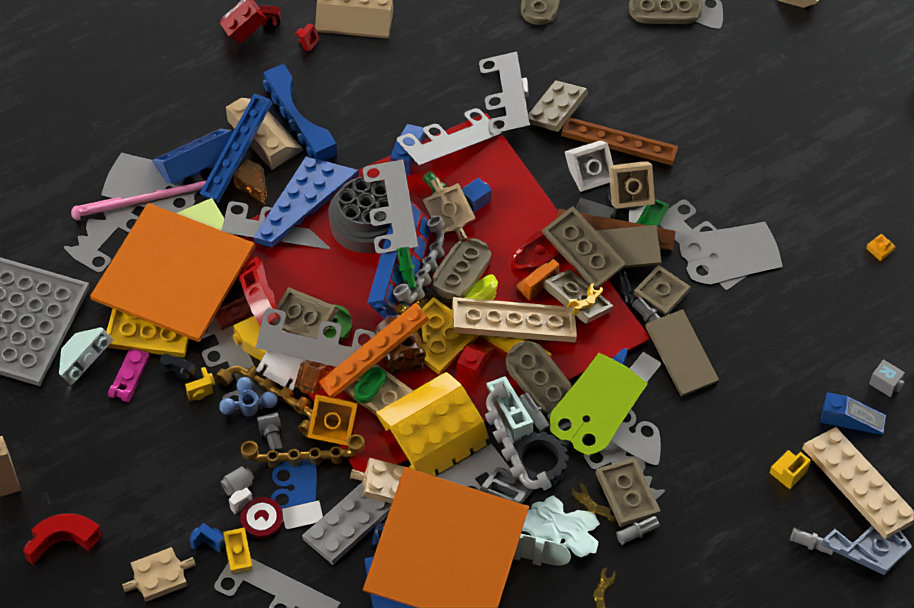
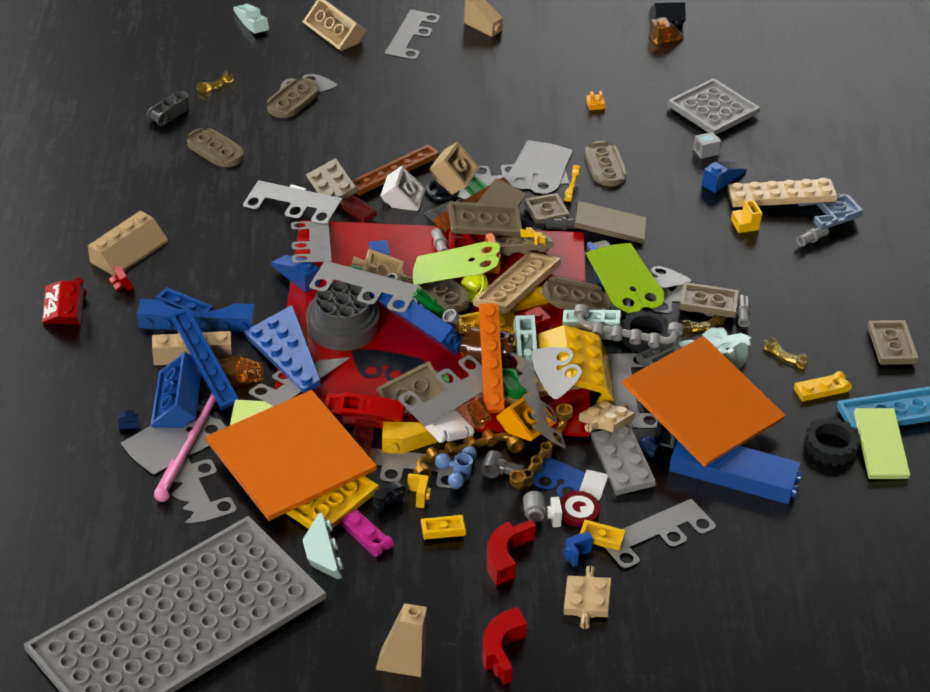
camera: 60 degrees left, 15 degrees down
(146, 142) = (128, 420): none -> dark blue plate
(166, 479) = (505, 538): none -> red arch
(169, 426) = (443, 527): none -> yellow plate
(310, 96) = (181, 301): none -> blue plate
(338, 416) = (534, 401): none -> light grey piece
(349, 285) = (375, 358): none -> black piece
(382, 415) = (546, 365): none -> light grey piece
(424, 368) = (525, 336): none -> light aqua slope
(492, 251) = (454, 263): none -> lime piece
(531, 229) = (440, 242): none -> light grey pin
(539, 145) = (358, 208): none -> clear red plate
(704, 297) = (569, 192): none -> yellow piece
(782, 305) = (605, 163): none -> dark tan tile
(865, 33) = (406, 31): none -> light grey piece

